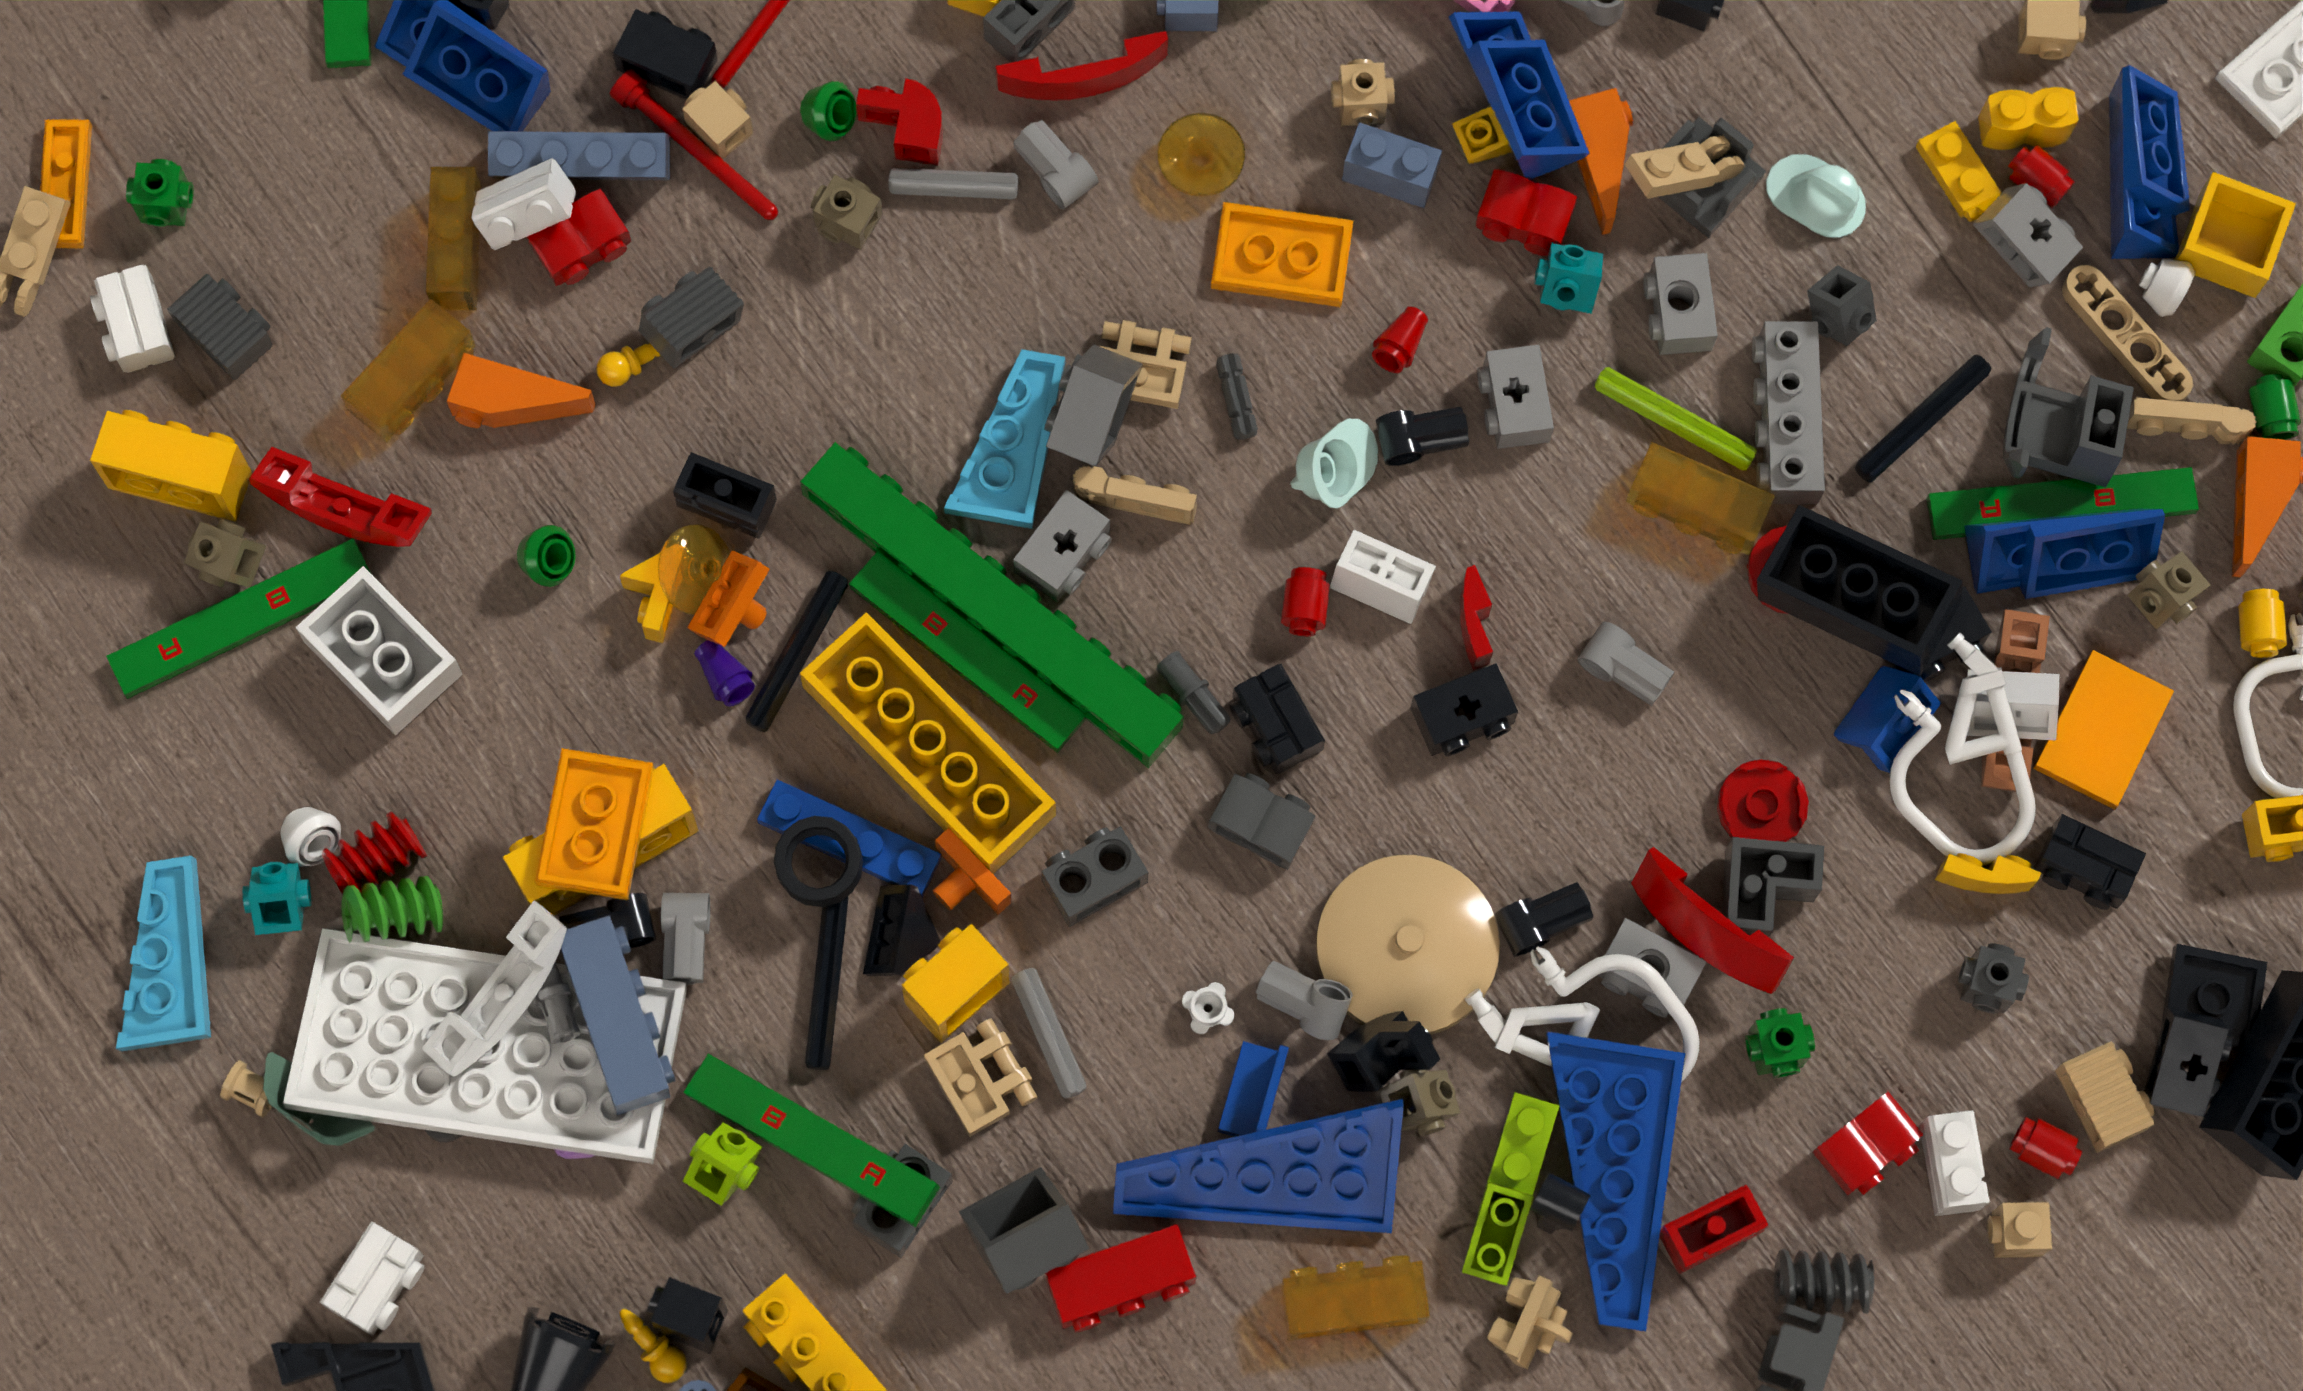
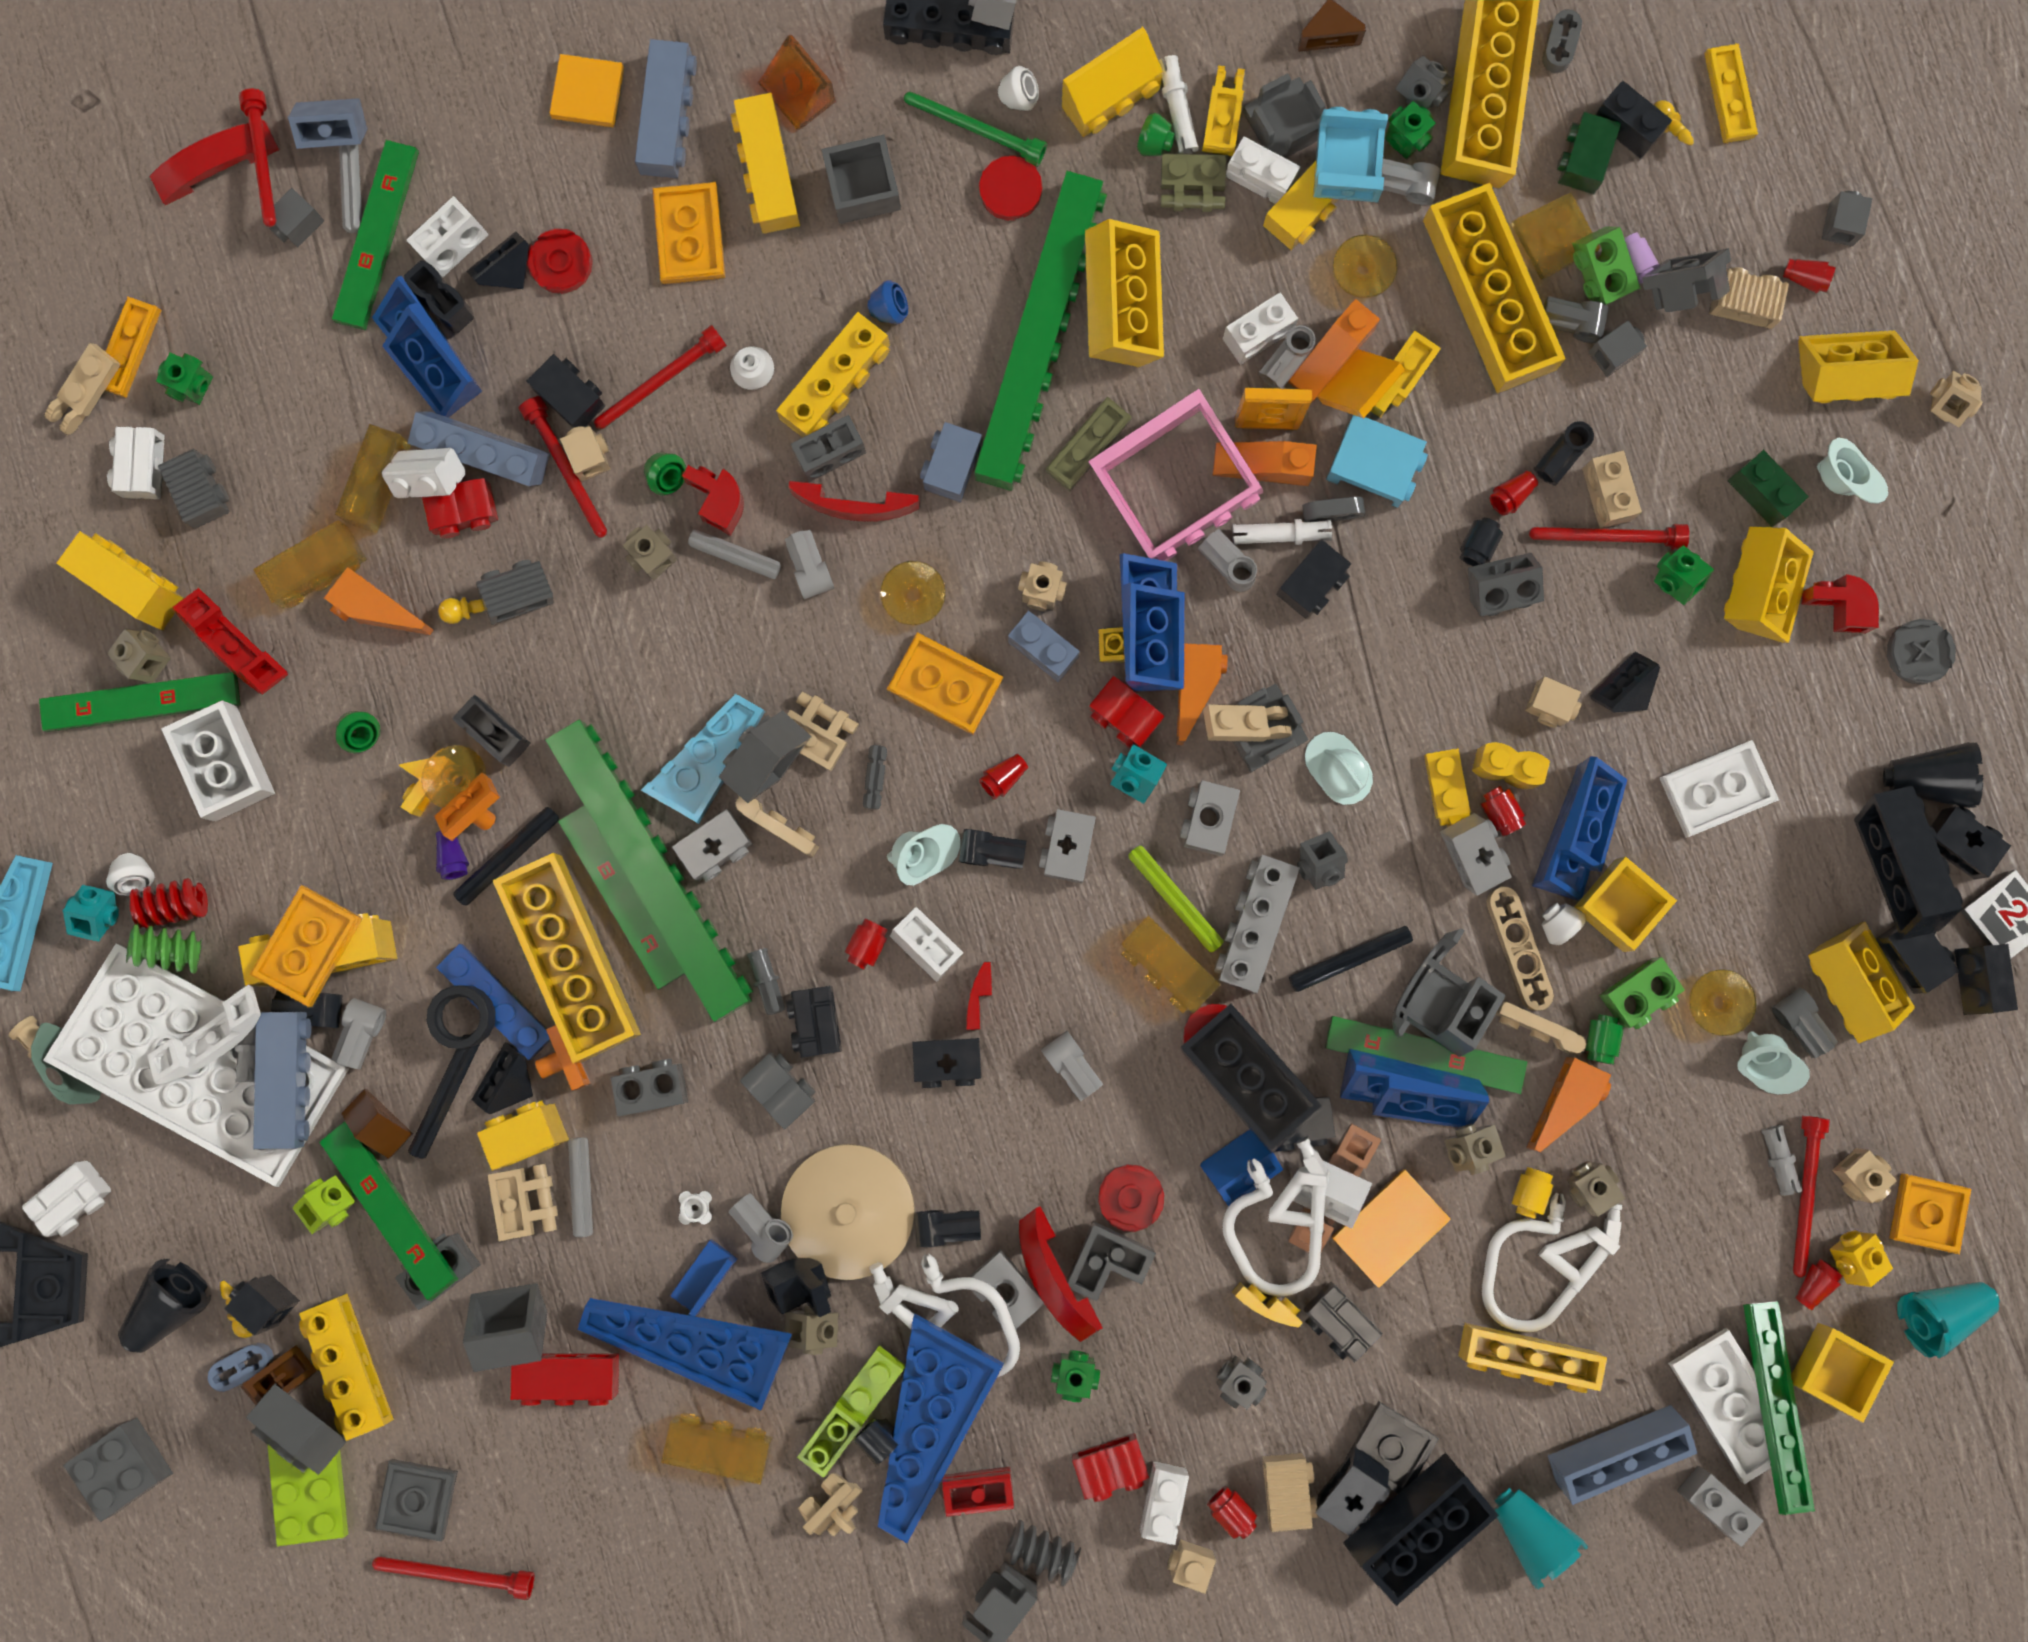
camera: 25 degrees right, 10 degrees up
(750, 1045) = (375, 1125): none -> reddish brown slope

